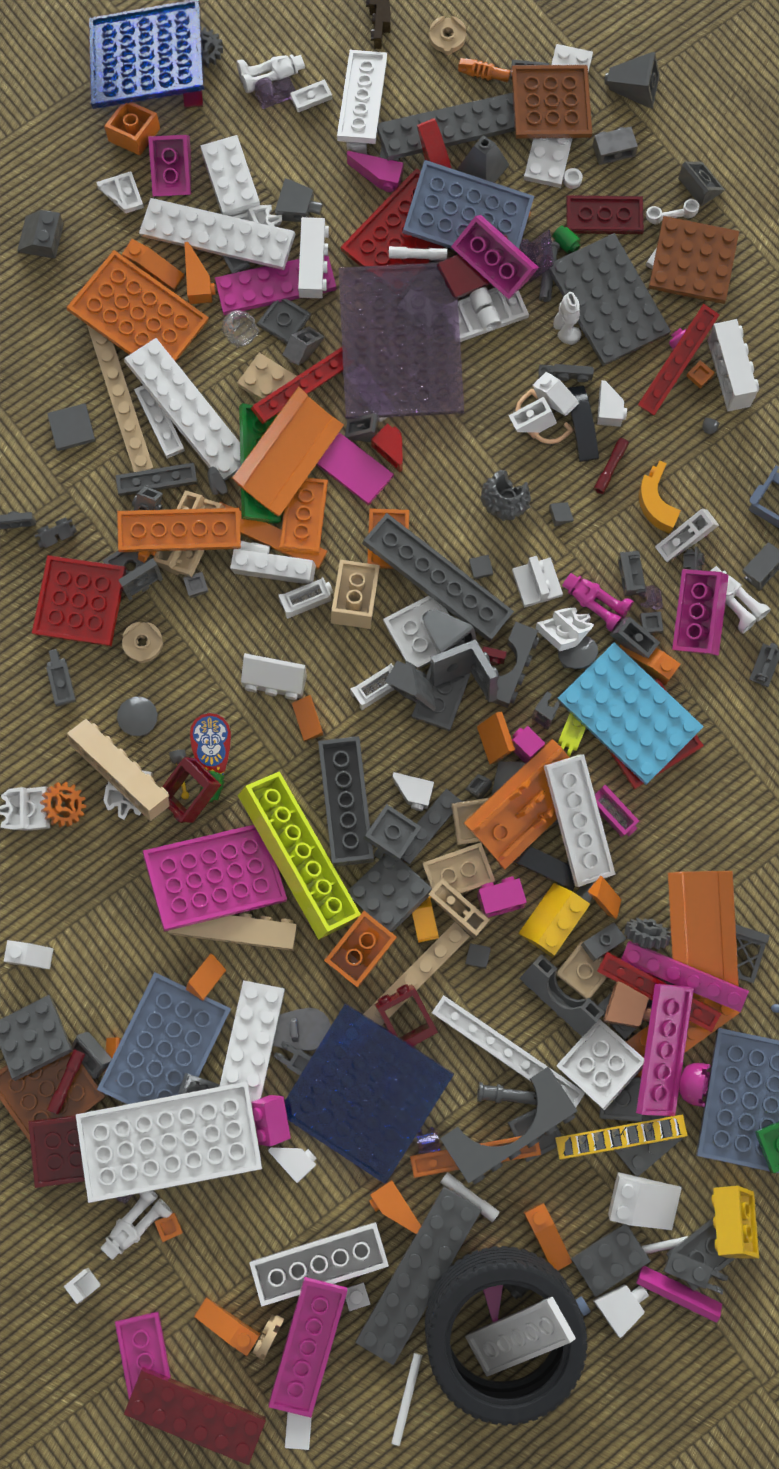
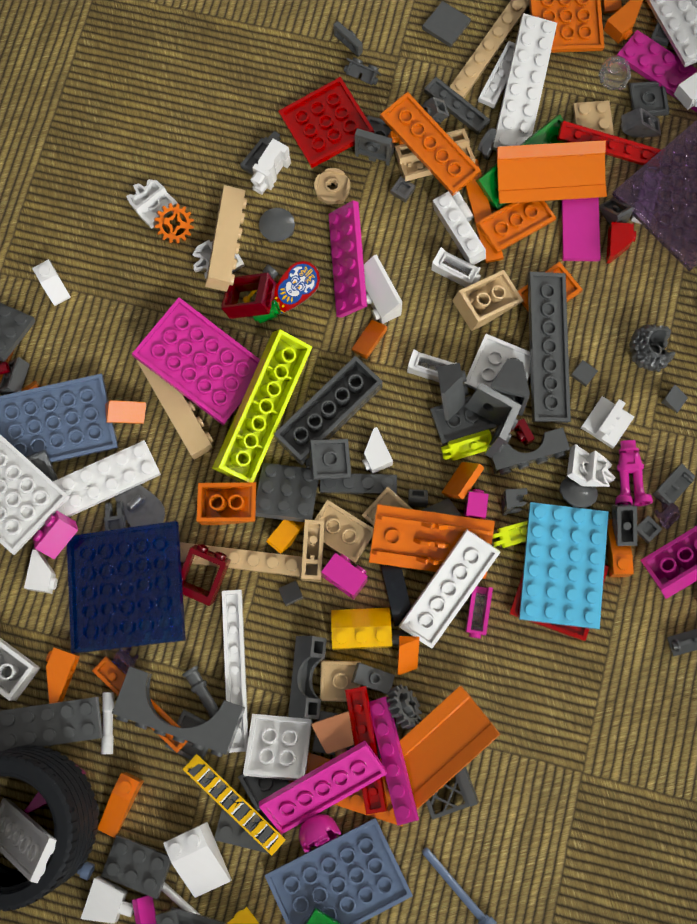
camera: 55 degrees right, 0 degrees up
(84, 688) = (269, 166): none -> white hips
(223, 680) = (347, 259): none -> dark pink plate
(468, 710) = (467, 445): none -> neon yellow hinge

